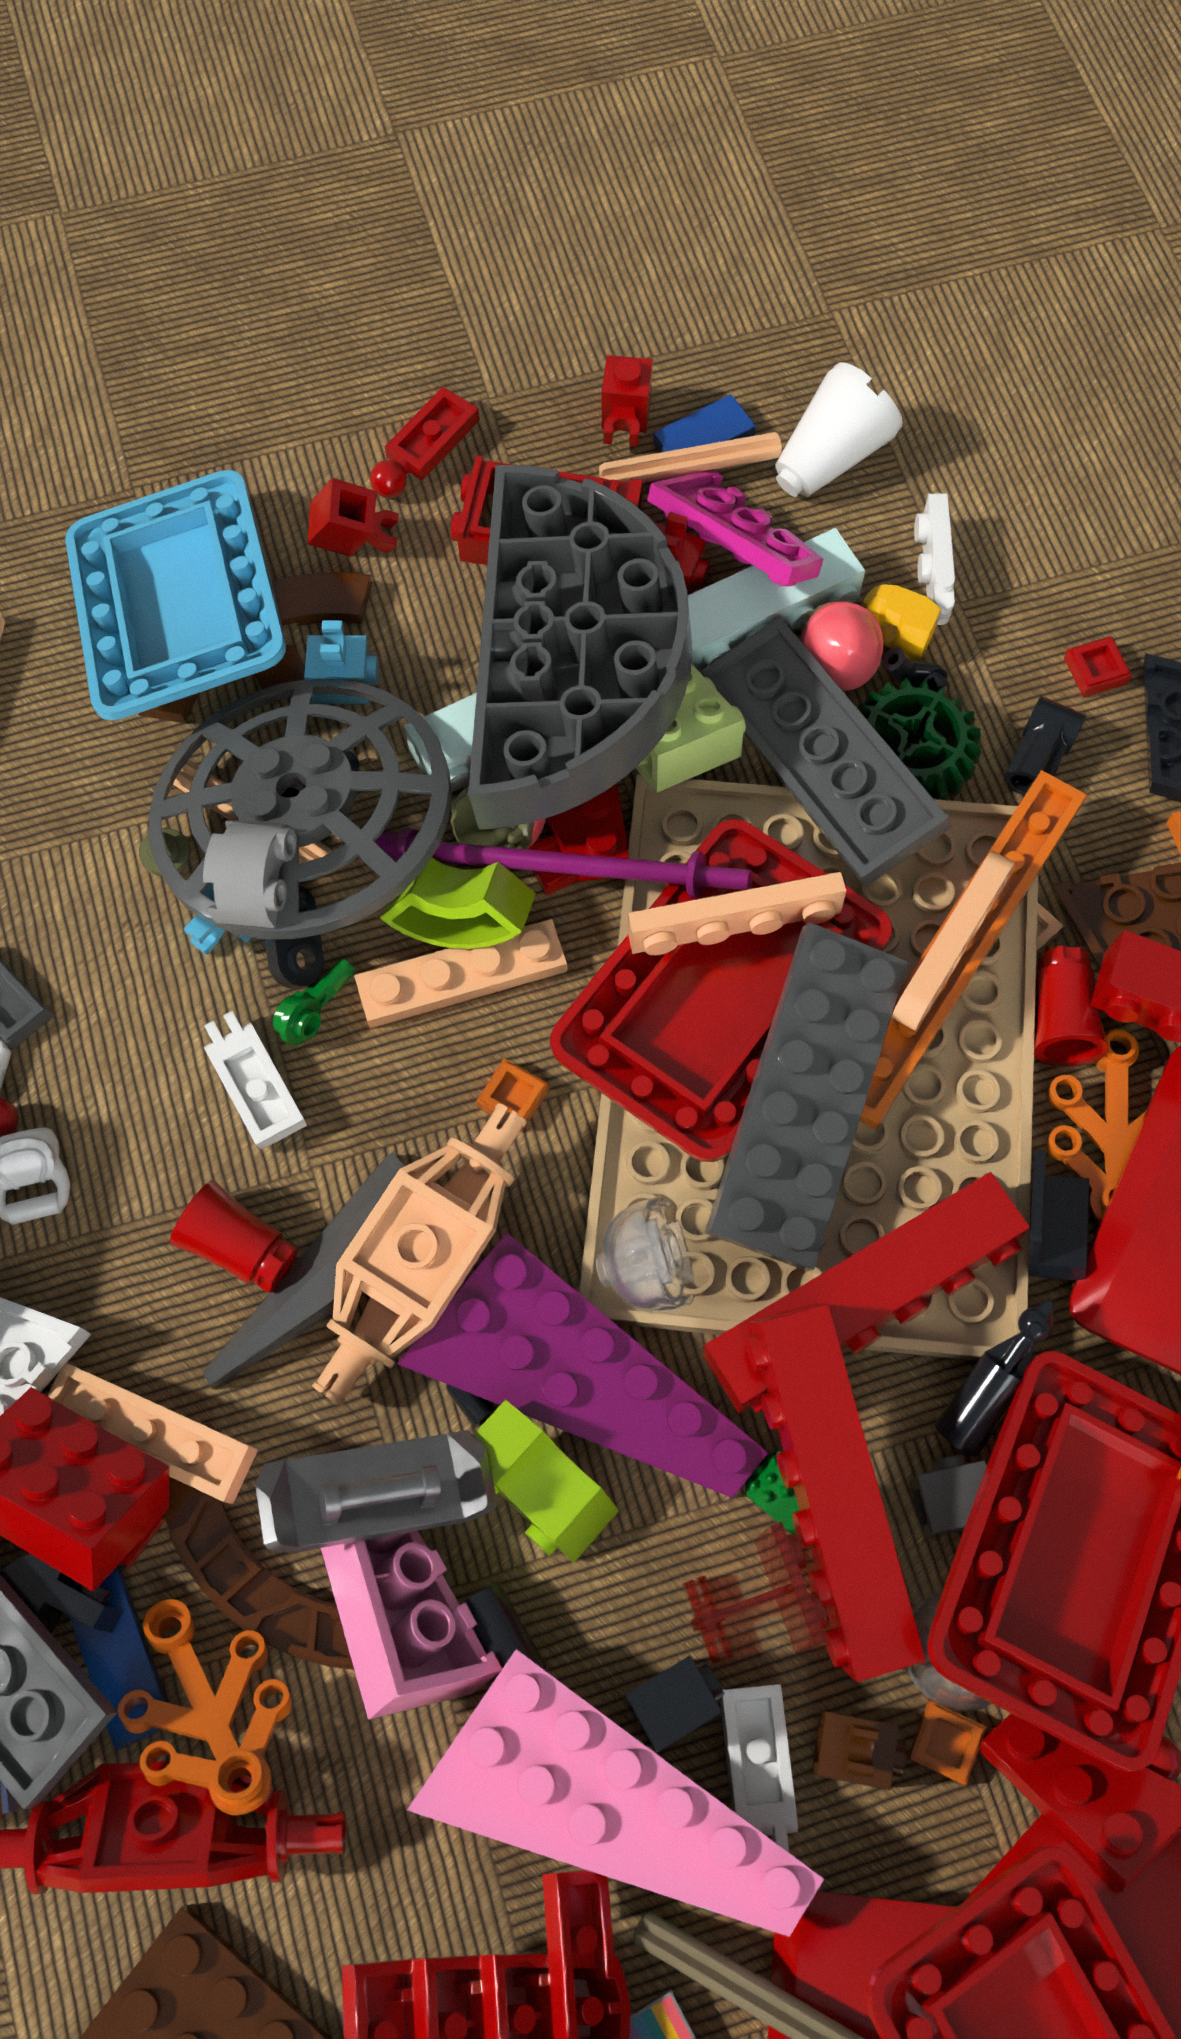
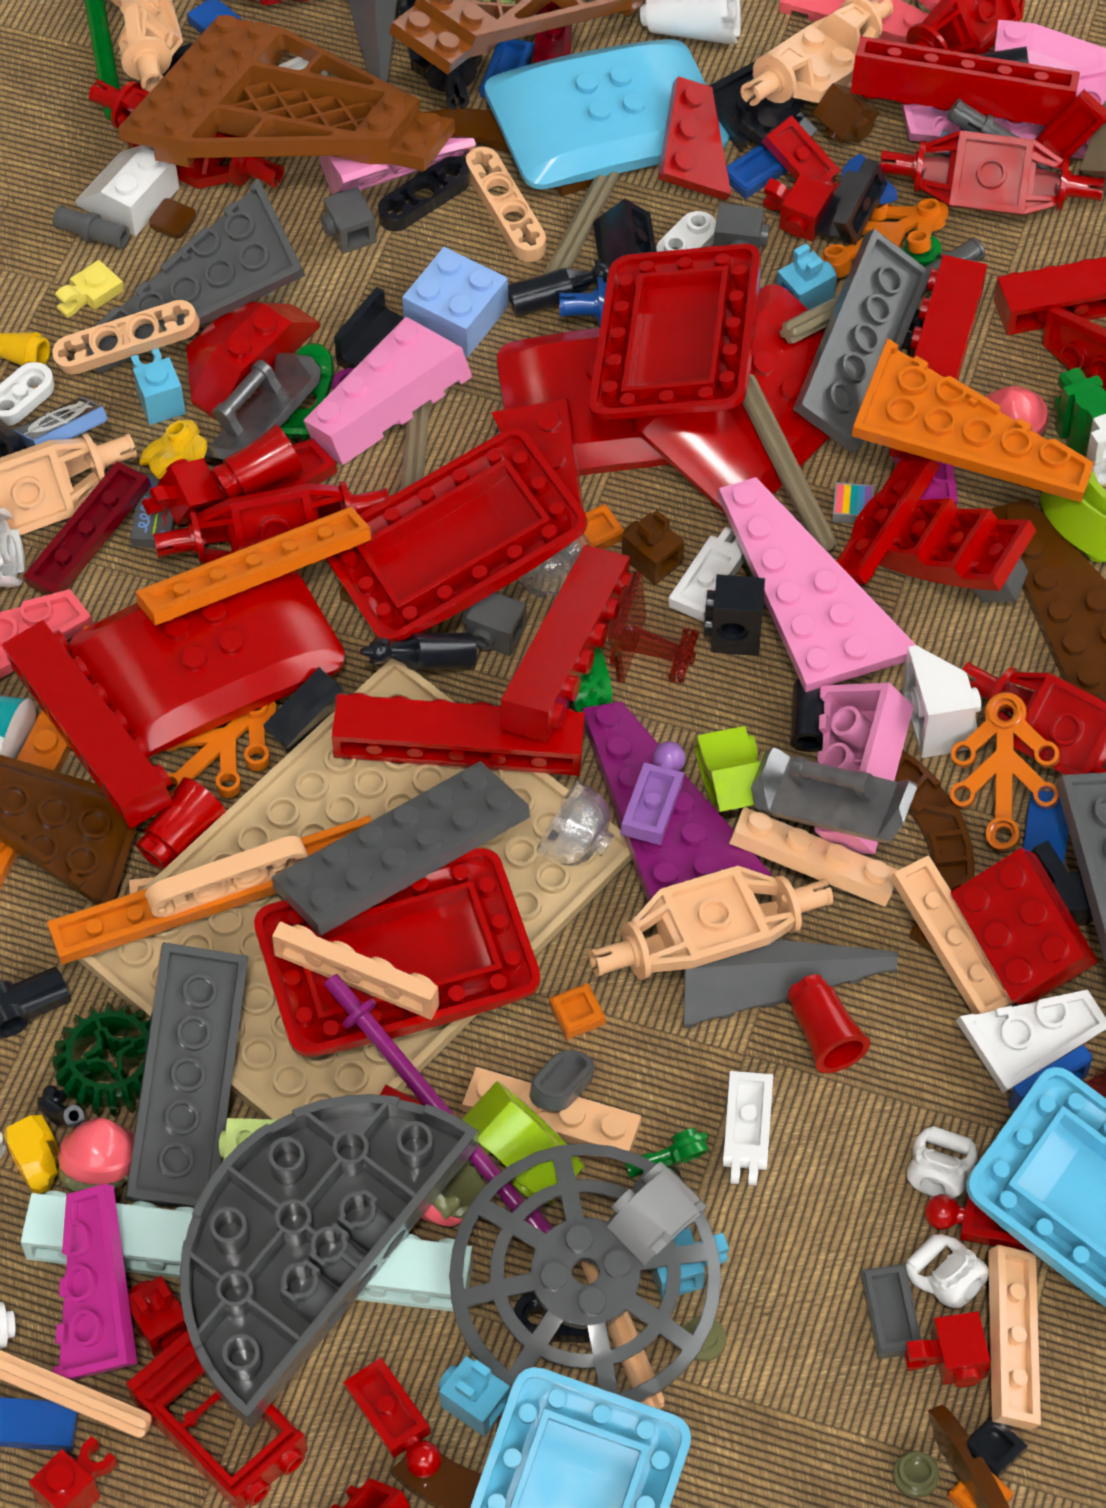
camera: 145 degrees left, 10 degrees down
(336, 1745) = (941, 701): none -> white slope
(397, 610) = (394, 1418): none -> red plate
(413, 1413) = (813, 856): none -> light nougat plate
(468, 997) = (561, 1080): none -> dark grey tile
(587, 1359) = (655, 794): none -> medium lavender plate

